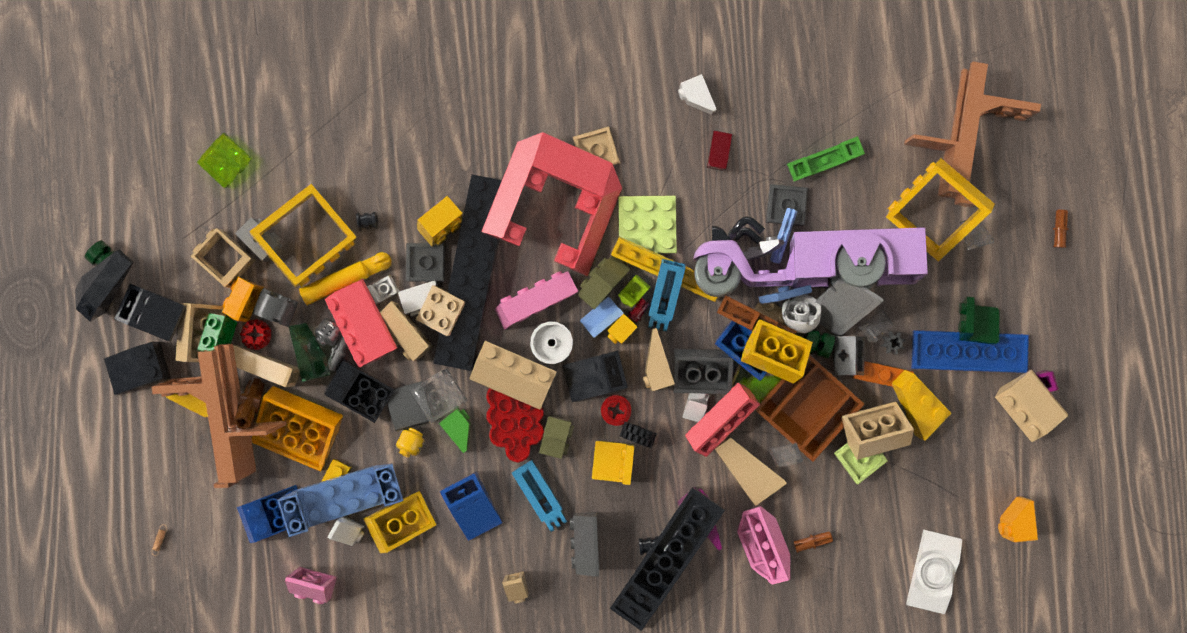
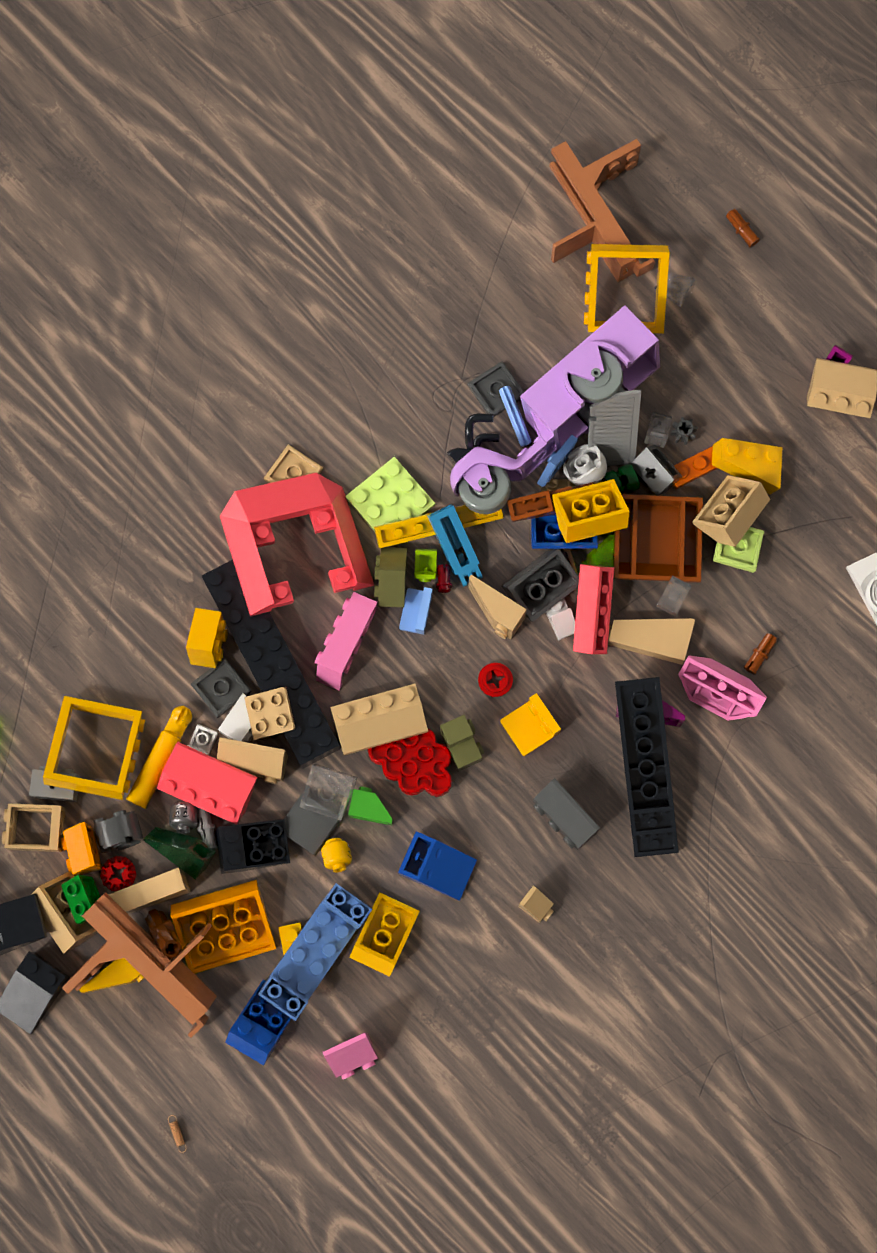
camera: 35 degrees left, 10 degrees down
(346, 531) = (344, 979): white slope -> none
(367, 221) = (139, 692): black bush -> none
(535, 489) = (482, 804): dark azure hinge -> none
(556, 353) = (378, 660): white wheel -> none
(595, 376) = (452, 663): black slope -> none
(621, 329) = (441, 604): yellow brick -> none
(638, 434) = (532, 682): black tyre -> none
(645, 545) = (619, 774): black bush -> none
(697, 94) = (343, 358): white slope -> none
(719, 151) = (401, 390): dark red slope -> none
(767, 247) = (509, 434): light grey slope -> none
(826, 159) = (498, 325): bright green slope -> none
(946, 352) = (754, 387): blue tile -> none
(978, 322) = (740, 356): dark green bracket -> none

